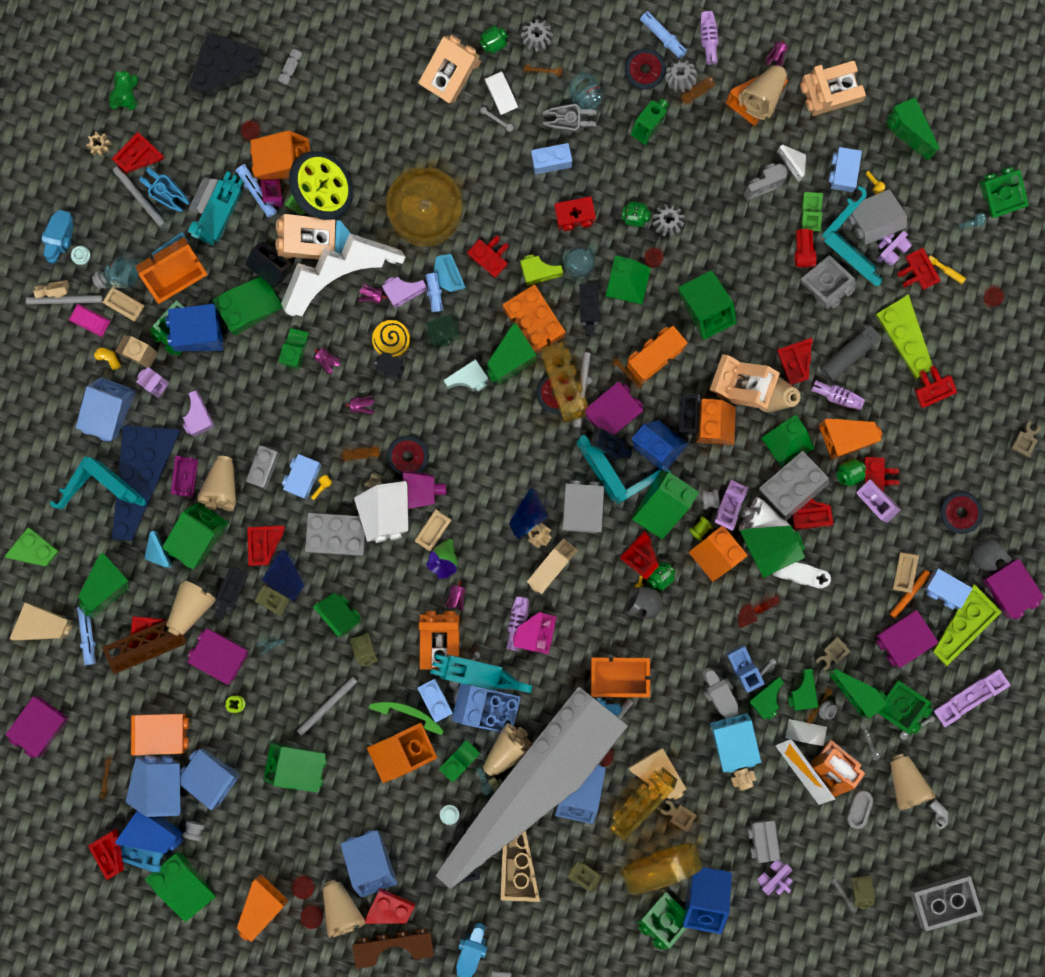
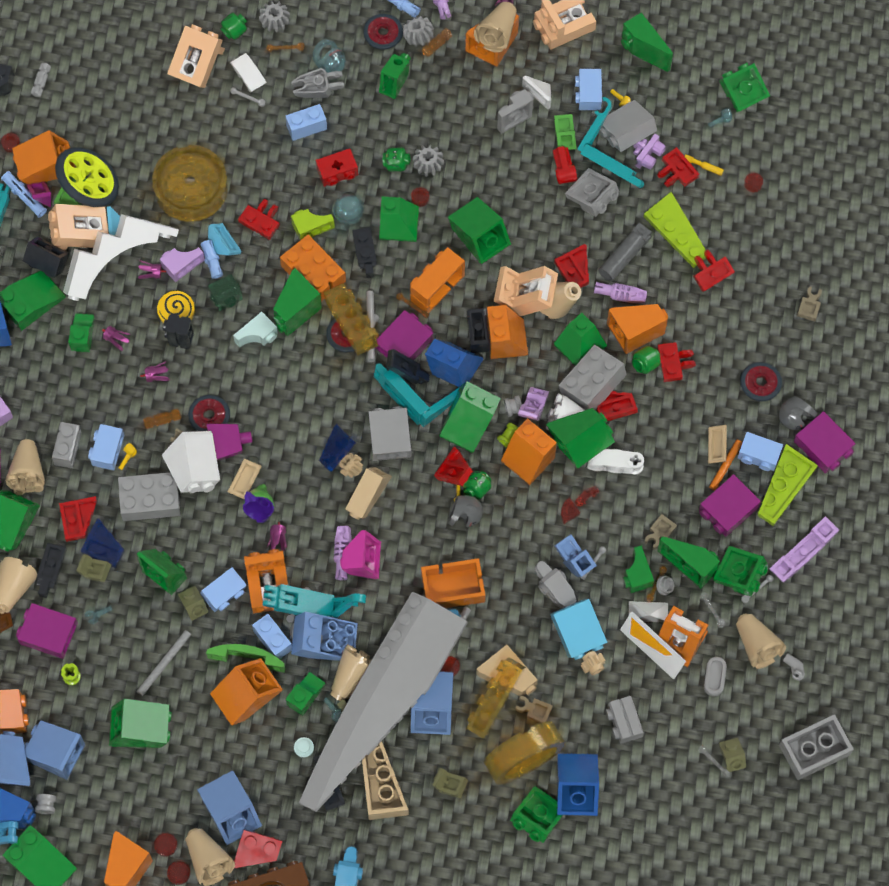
camera: 10 degrees left, 15 degrees down
(395, 645) = (223, 590): none -> light blue brick
(765, 700) = (600, 586): green arch -> none
(770, 884) = (646, 756): lavender hips -> none
(878, 501) = (677, 381): lavender arch -> none

